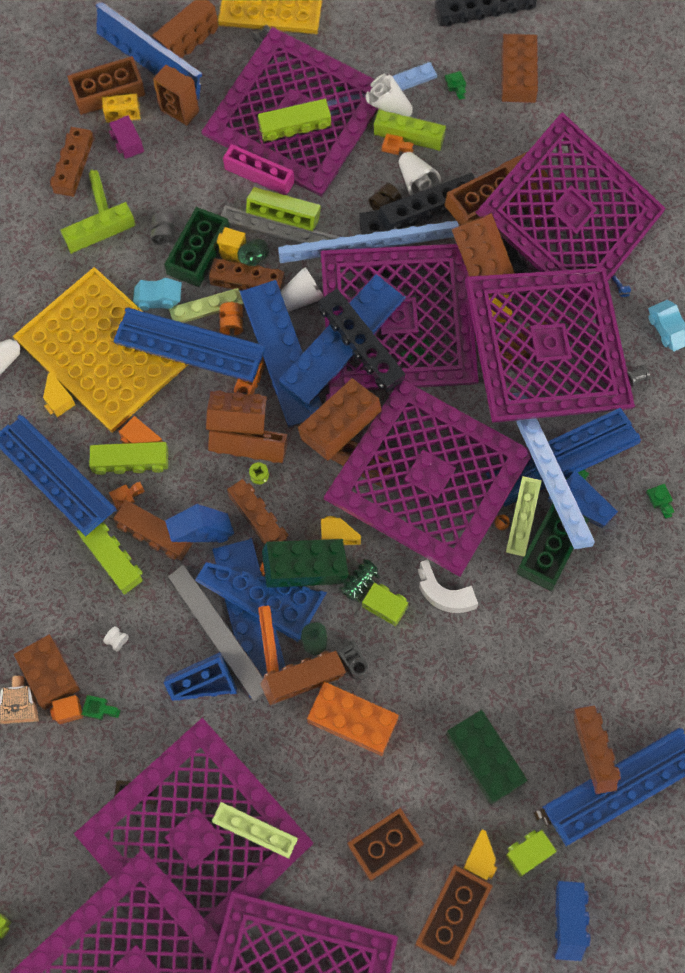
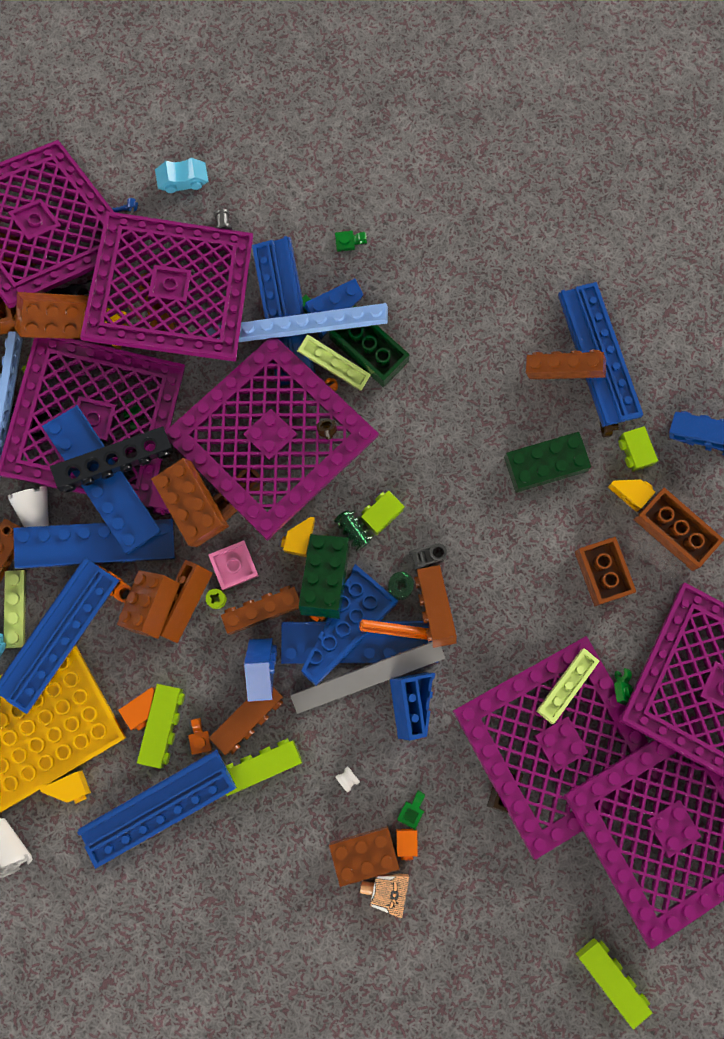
camera: 75 degrees left, 10 degrees up
(230, 317) = (35, 585): orange wheel -> none
(269, 892) = (622, 688): none -> green plate
(295, 480) = (233, 565): none -> bright pink plate
(353, 718) = (484, 570): orange brick -> none
(447, 600) = (389, 460): white arch -> none
(448, 522) = (327, 428): none -> dark brown tile

